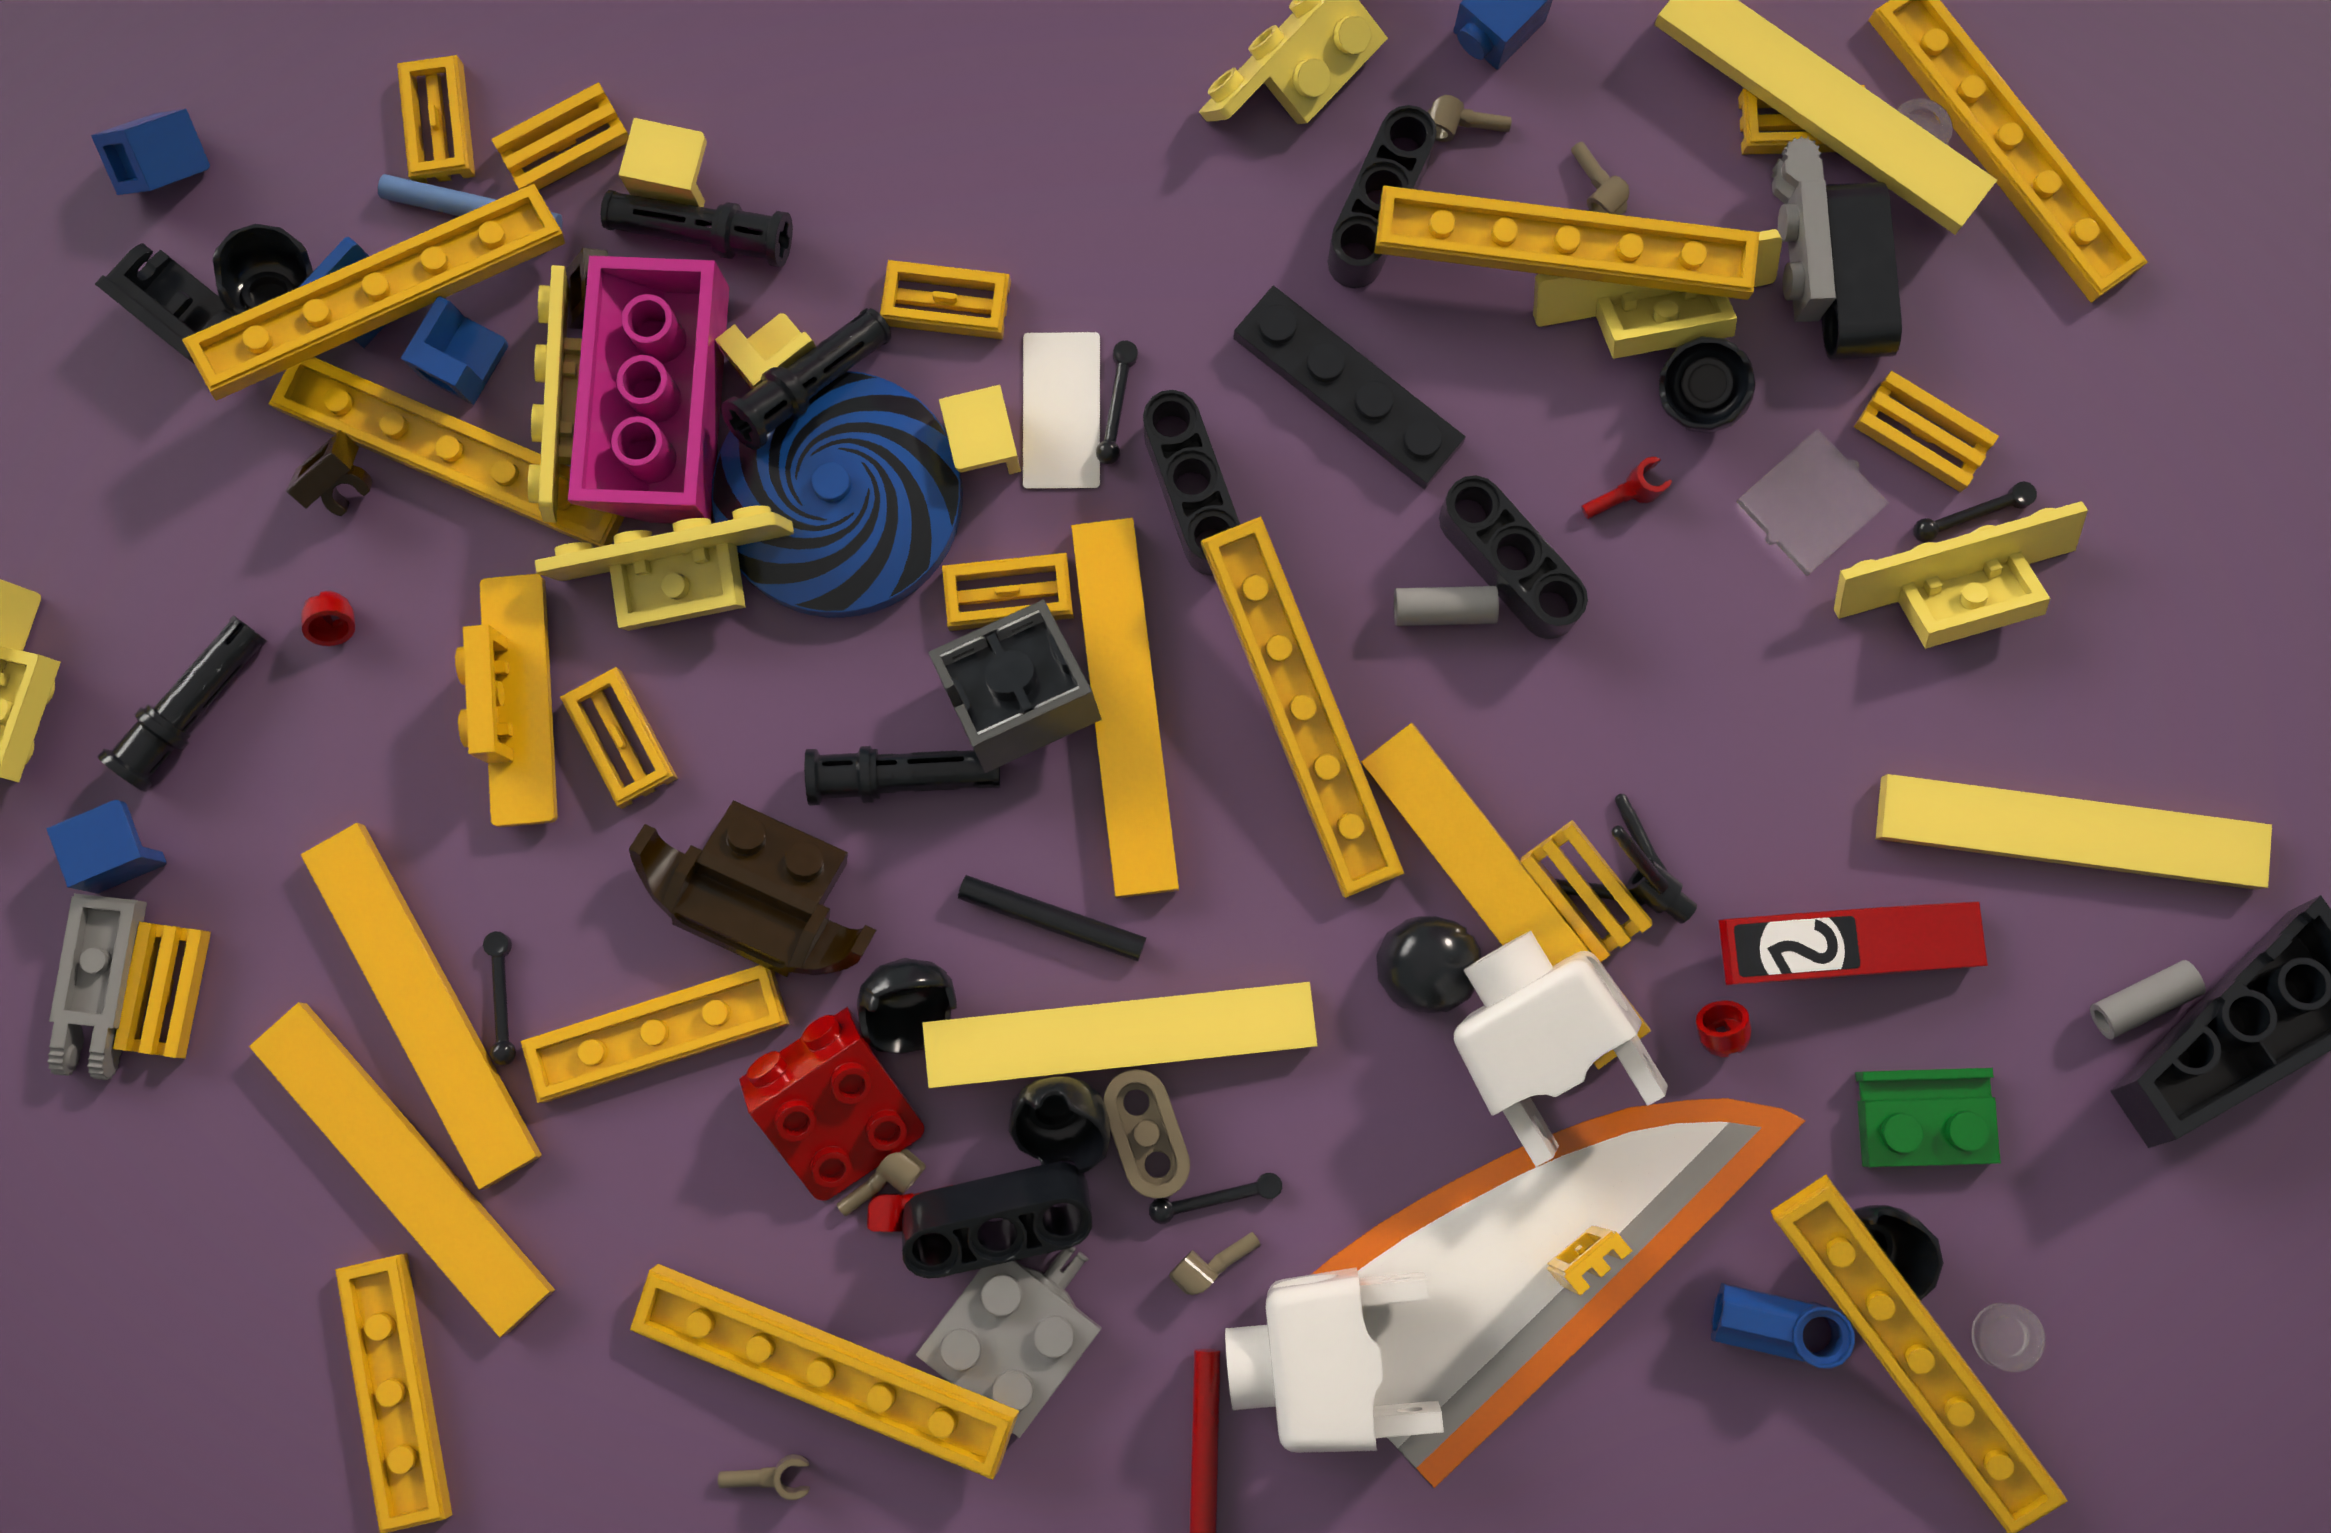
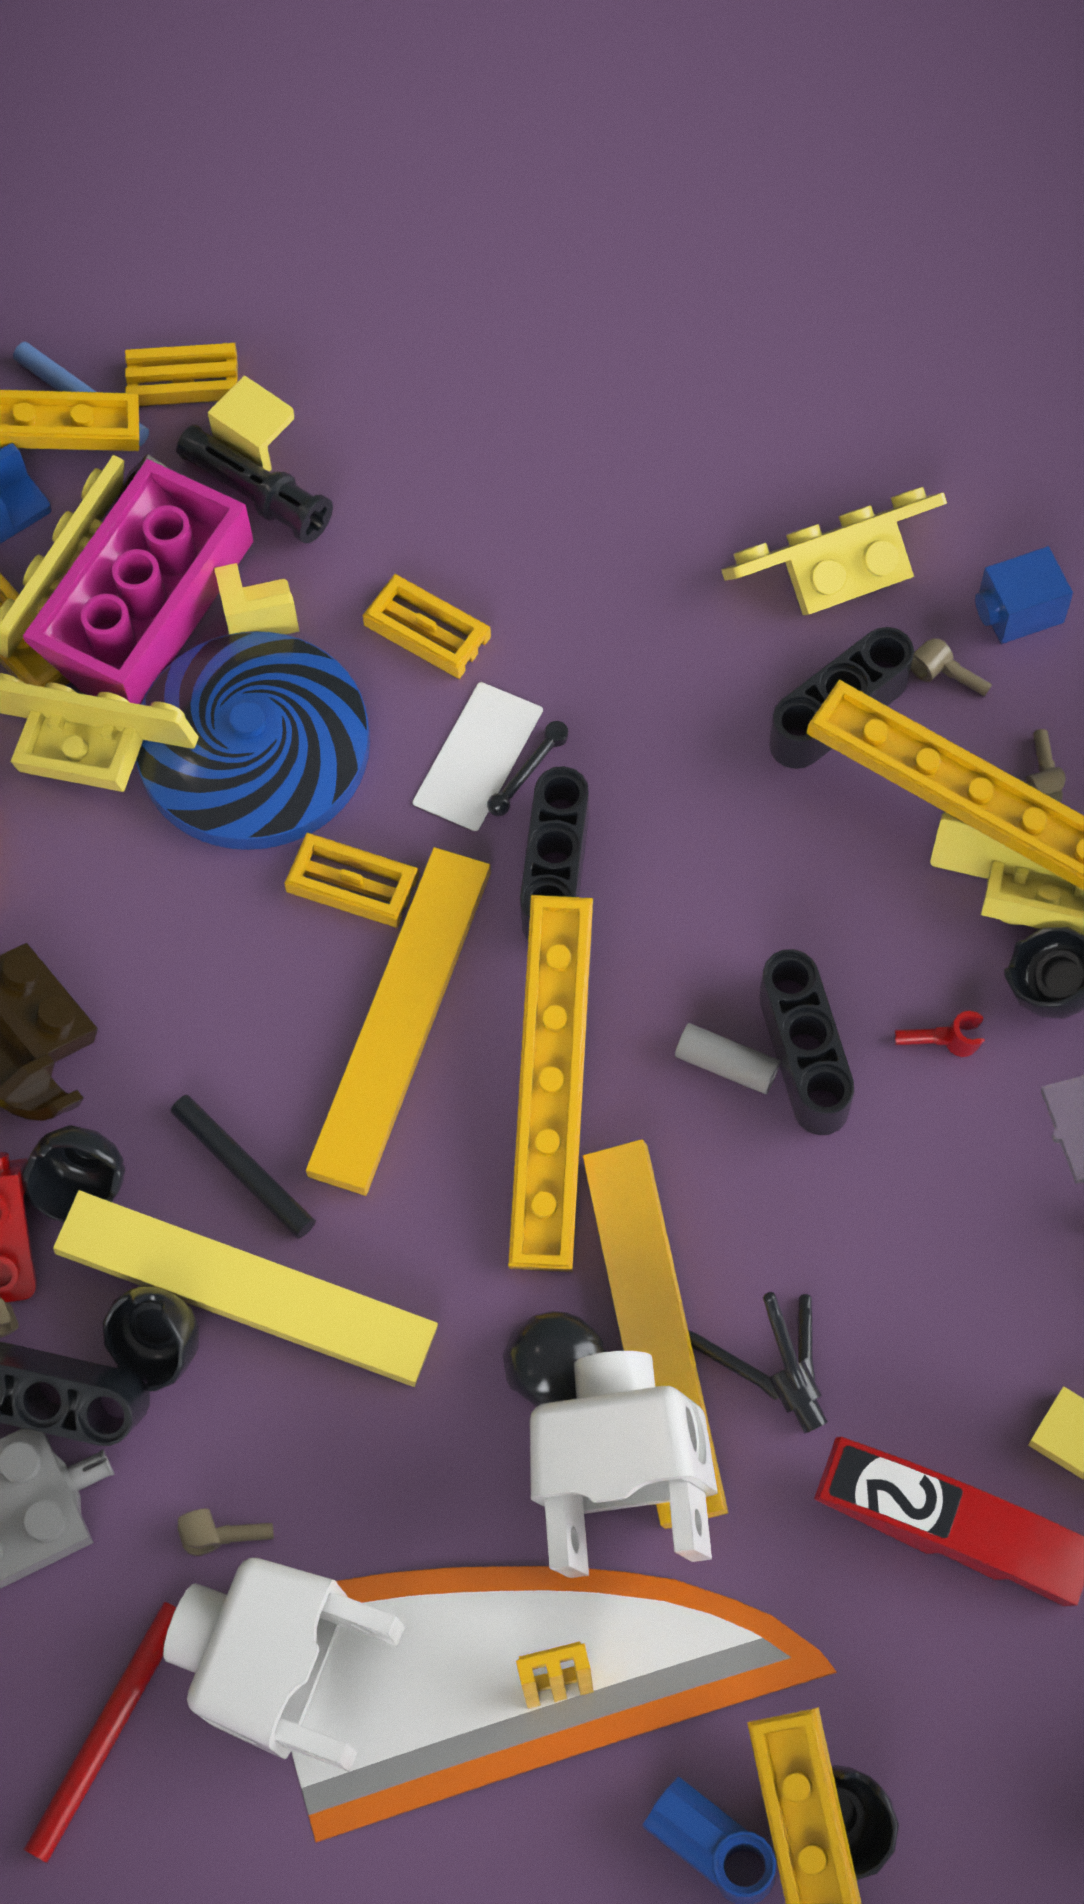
camera: 25 degrees right, 15 degrees down
(442, 166) = (109, 328): yellow tile -> none
(787, 391) = (245, 635): black pin -> none
(870, 773) = (153, 973): black pin -> none
(979, 430) = (397, 735): light yellow panel -> none
(1015, 686) = (310, 950): piece -> none
(1146, 1133) = (223, 1388): dark tan plate -> none
(1267, 1186) = (307, 1488): black hinge -> none
(1349, 387) = (736, 843): black plate -> none
(1618, 934) = (704, 1366): yellow tile -> none
(1736, 1022) = (796, 1543): red hinge -> none
(1927, 1117) = (954, 1722): green plate -> none

